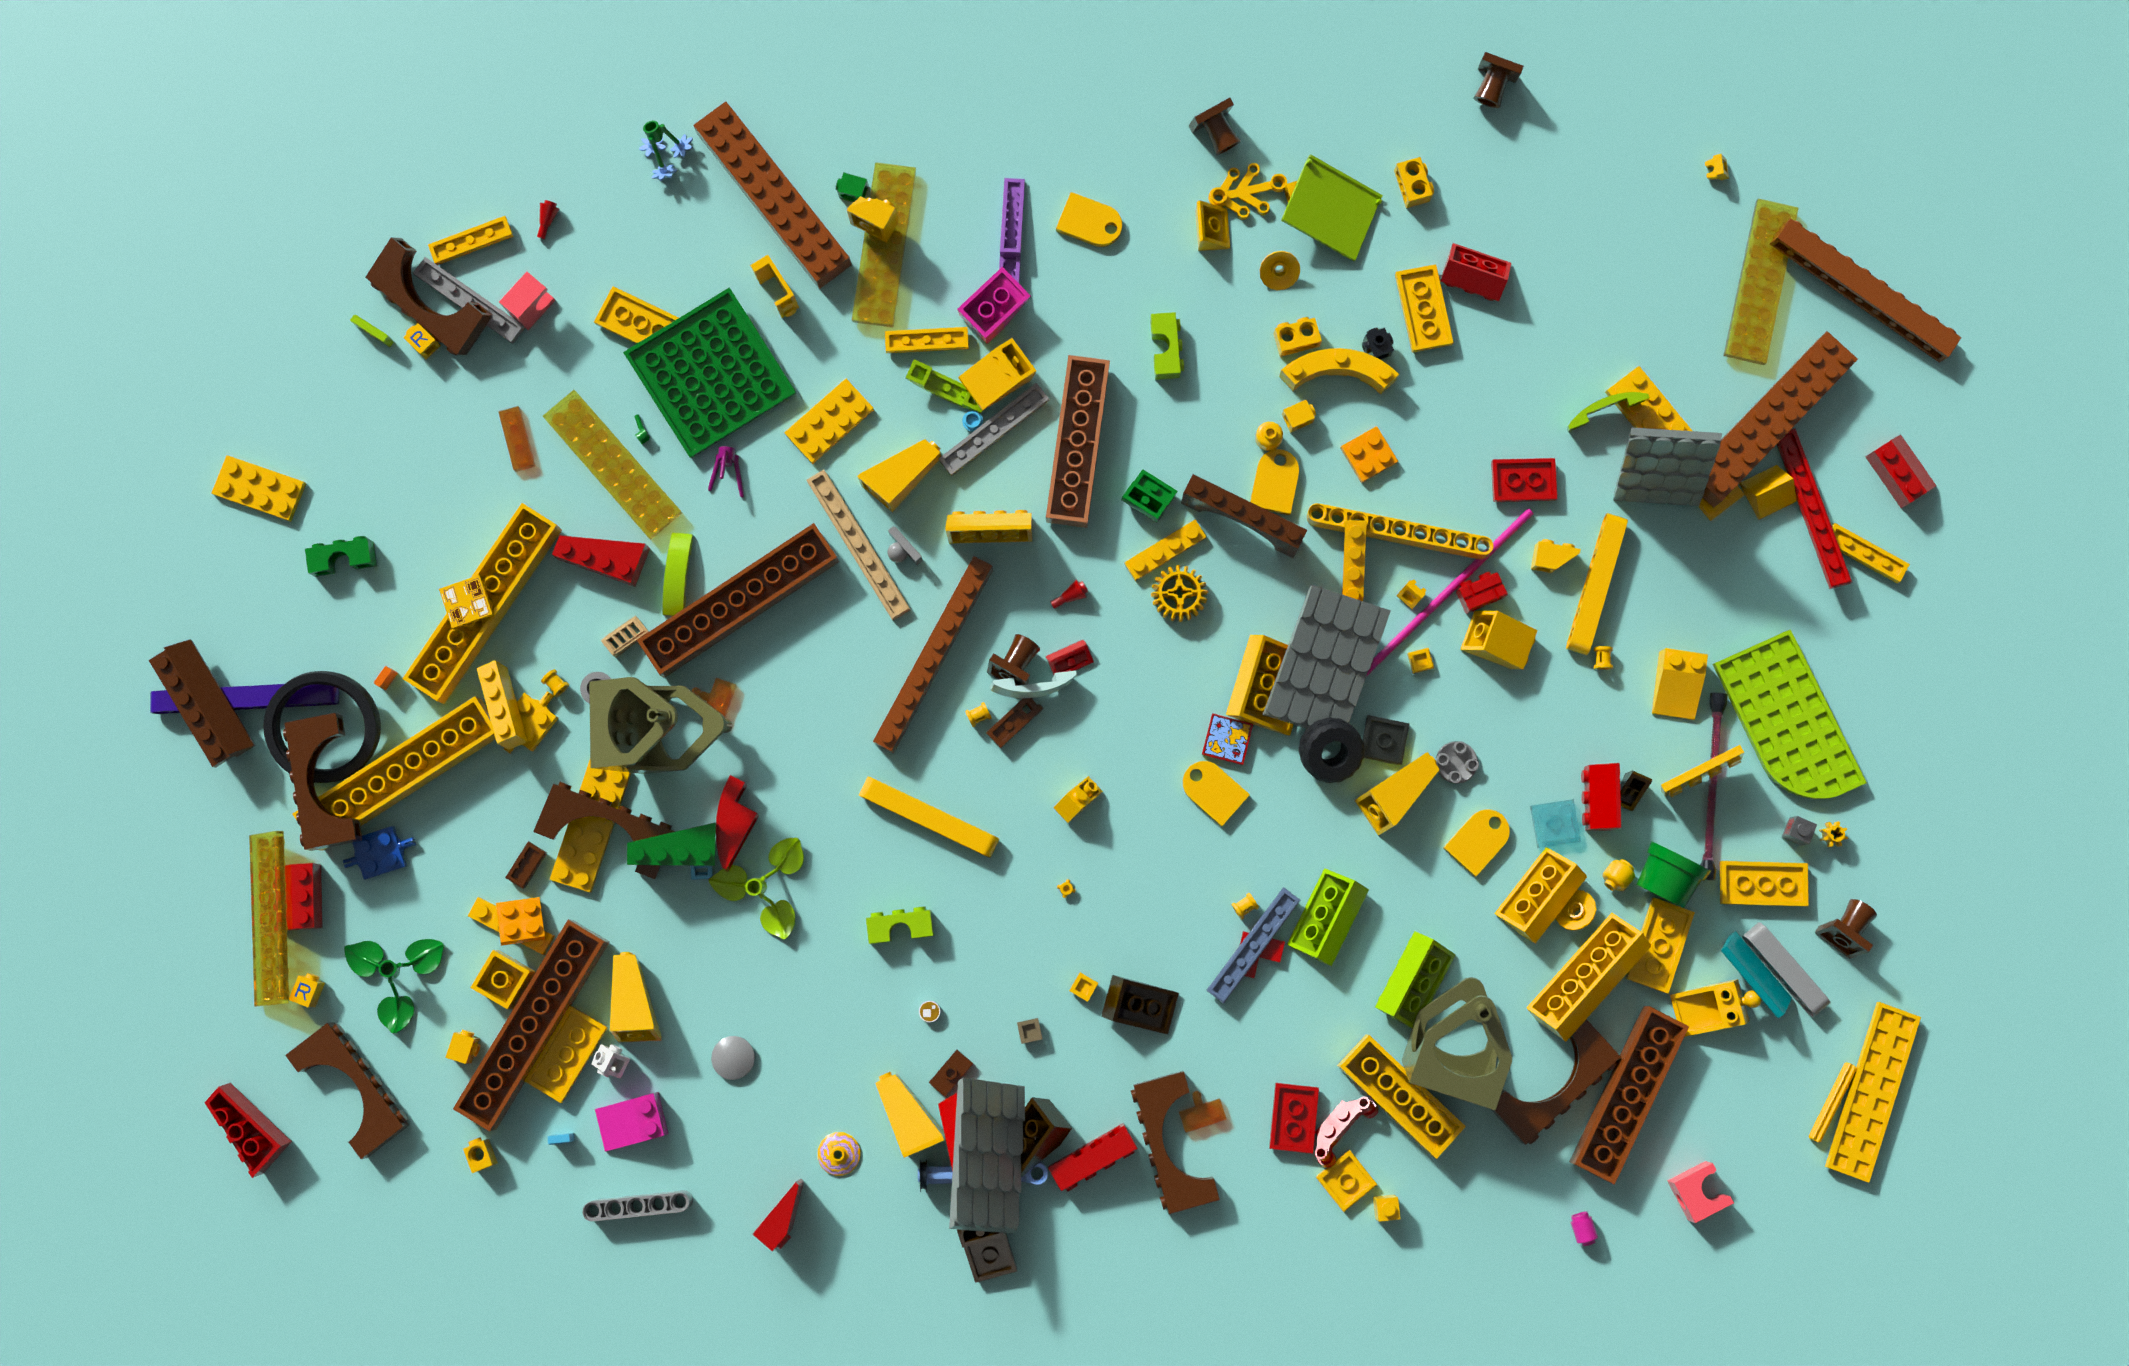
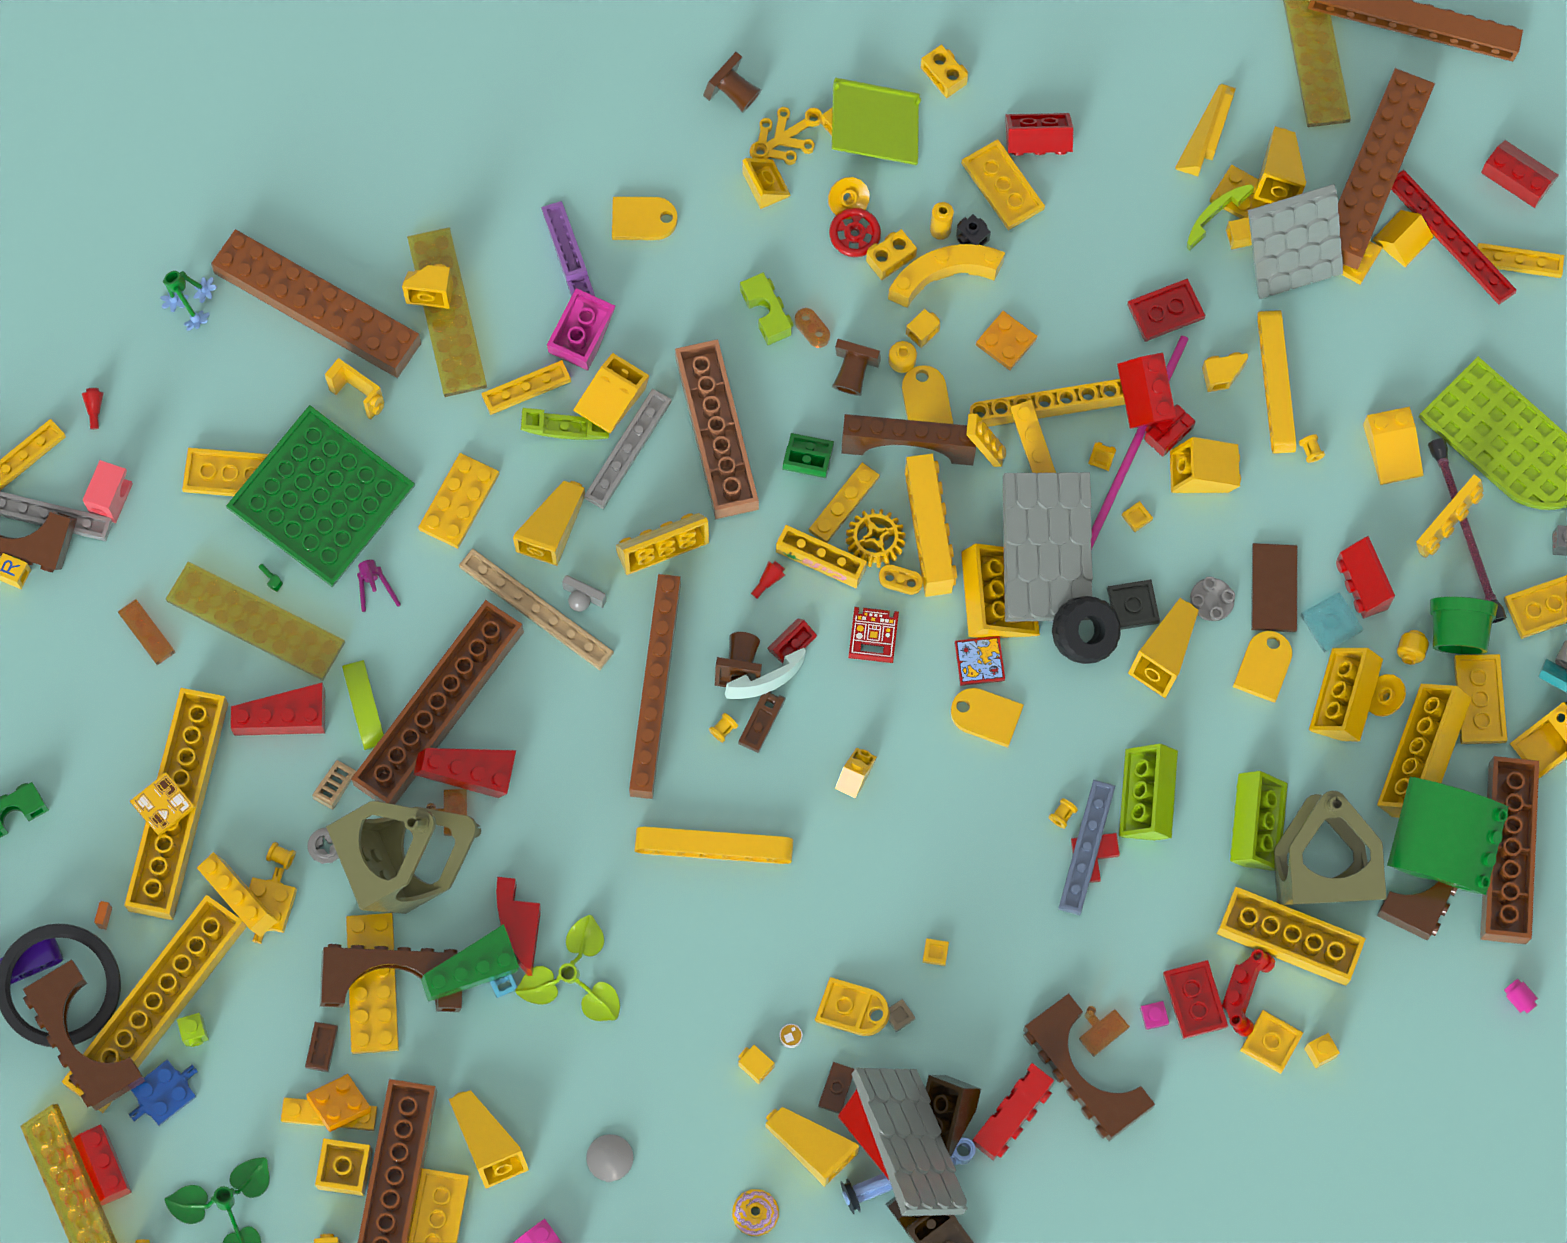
camera: 25 degrees left, 10 degrees down
(422, 809) = (192, 1030): none -> lime brick
(610, 1061) = (486, 1206): white brick -> none
(746, 672) = (469, 769): none -> red wedge
(851, 187) = (392, 268): green brick -> none
(880, 926) = (744, 951): lime arch -> none
(888, 1025) = (755, 1063): none -> yellow brick
(972, 420) = (602, 448): medium azure plate -> none
(990, 1008) = (850, 1008): none -> yellow tile
(1066, 888) = (879, 864): yellow piece -> none
(1123, 593) = (821, 556): none -> yellow brick
(1139, 1004) = (998, 947): dark brown slope -> none
(1144, 675) = (873, 629): none -> red container
(1187, 639) = (901, 578): none -> yellow plate
(1200, 377) = (812, 326): none -> clear orange plate
(1221, 430) = (854, 366): none -> reddish brown plant
(1230, 600) = (929, 525): none -> yellow brick
(1252, 1117) = (1154, 1015): none -> dark pink plate
(1260, 292) = (856, 215): none -> red plate
(1310, 544) = (985, 440): none -> yellow plate
(1354, 323) = (941, 220): none -> yellow brick
(1473, 552) = (1146, 390): none -> red slope
(1516, 772) = (1274, 587): none -> reddish brown tile
(1577, 1066) = (1448, 835): none -> green slope
(1619, 432) = (1239, 233): none -> yellow brick
(1629, 327) = (1207, 133): none -> yellow wedge
(1633, 788) = (1392, 559): dark brown slope -> none
(1682, 391) = (1282, 168): none -> yellow slope

